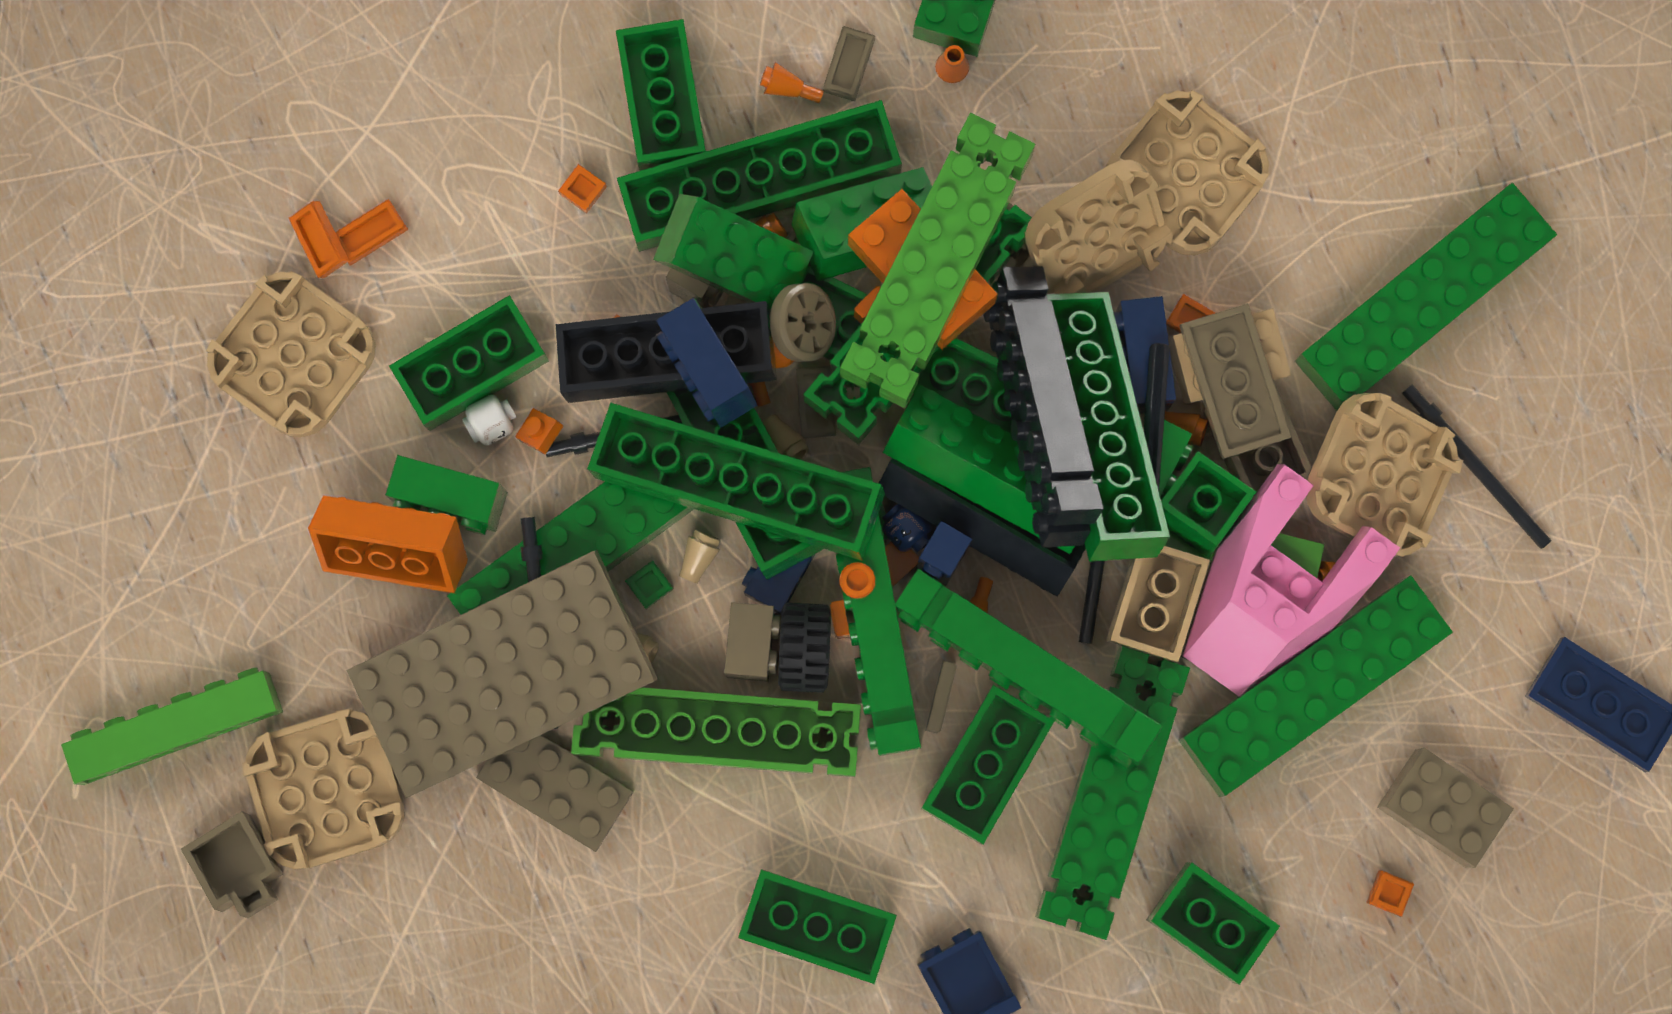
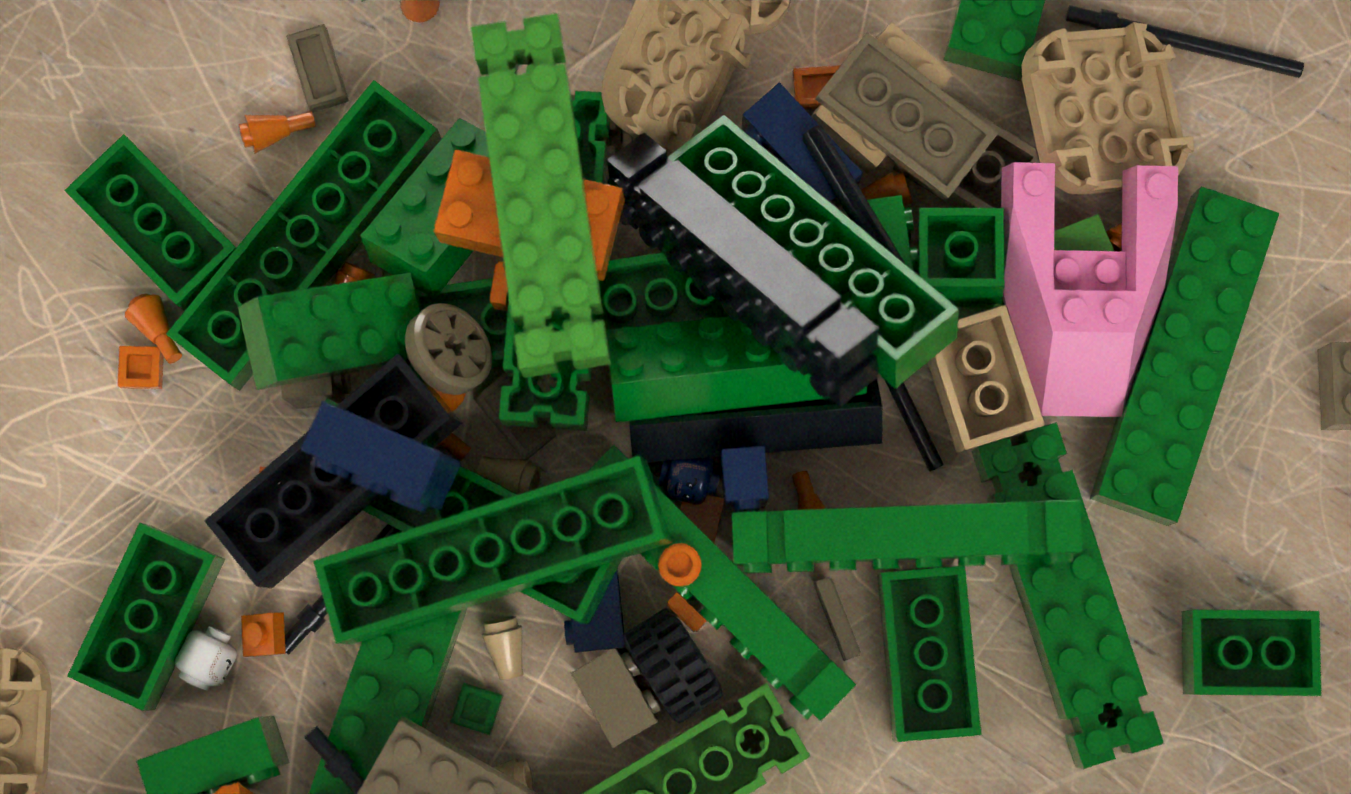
camera: 30 degrees left, 0 degrees up
(612, 158) = (149, 317): none -> orange cone

